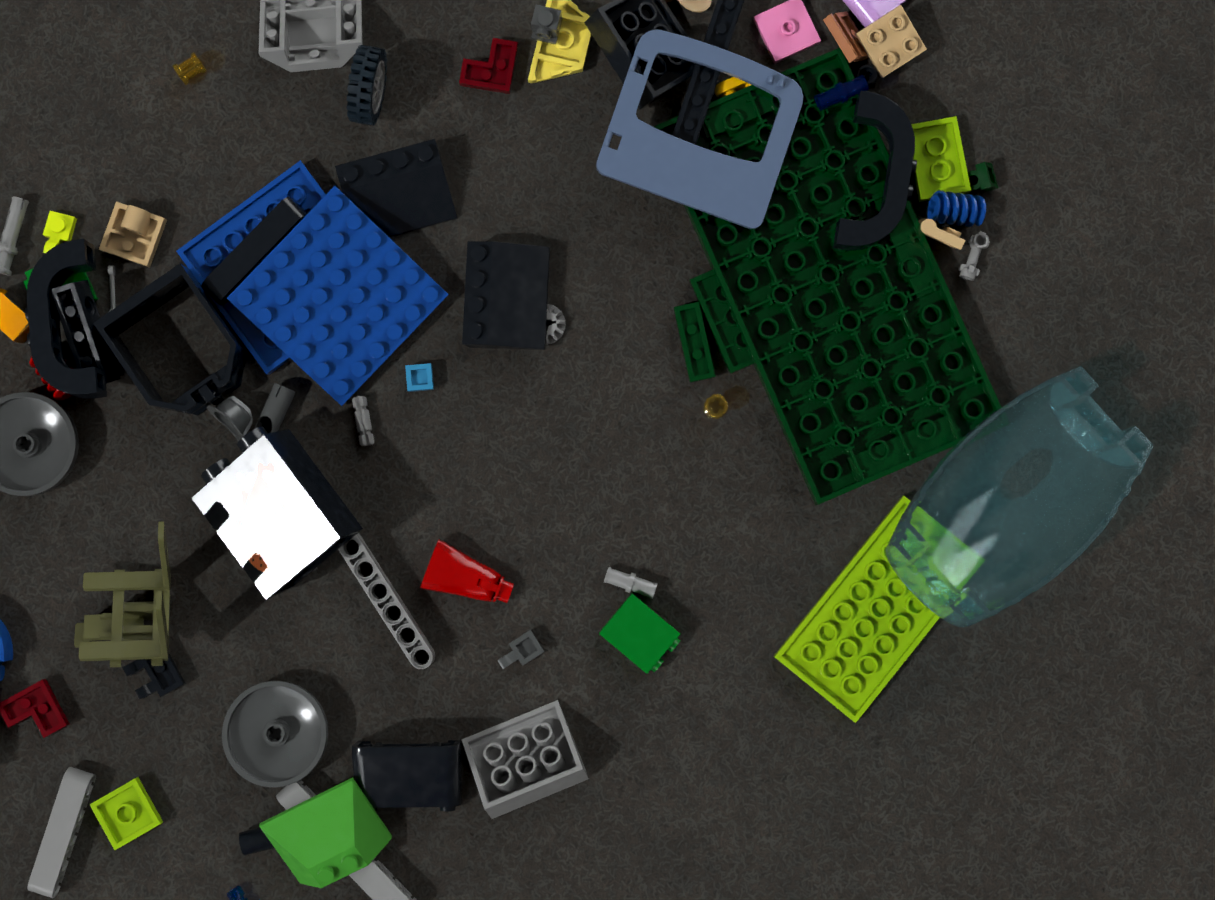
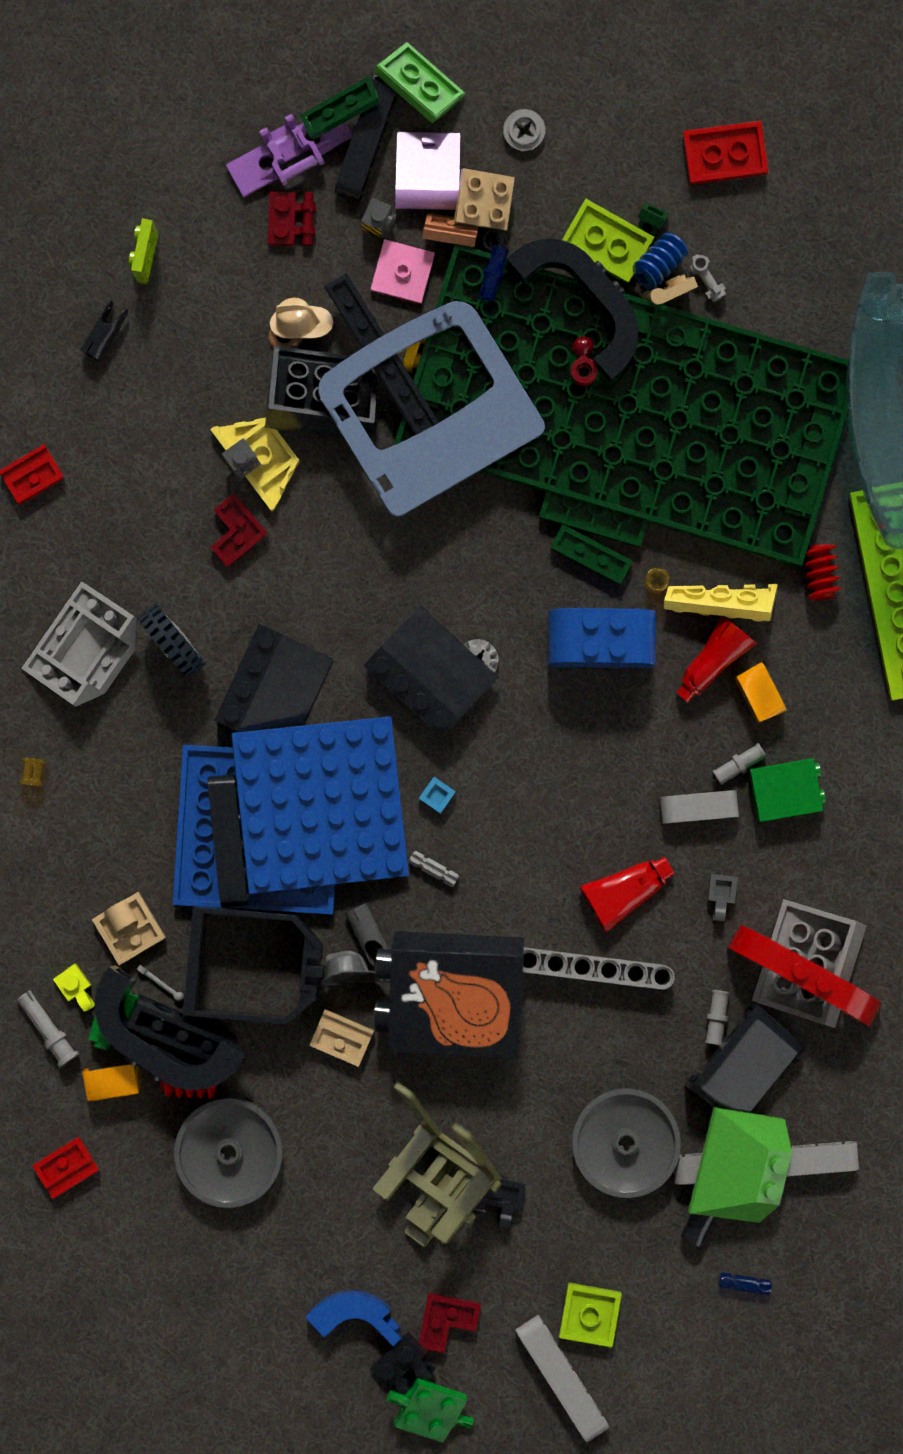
camera: 50 degrees left, 0 degrees up
(180, 457) = (341, 1037): none -> tan plate
(427, 724) = (717, 1017): none -> light grey pin
(509, 764) = (805, 974): none -> red arch
(573, 579) = (699, 806): none -> light grey beam
(637, 400) = (601, 638): none -> blue brick
(696, 553) = (760, 693): none -> light orange piece
(707, 497) = (723, 648): none -> red piece
(741, 468) = (721, 601): none -> light yellow wing
(826, 523) = (821, 572): none -> red piece
(841, 205) = (583, 349): none -> dark red plate
(975, 21) = (523, 118): none -> light grey gear
(1079, 191) = (725, 152): none -> red plate

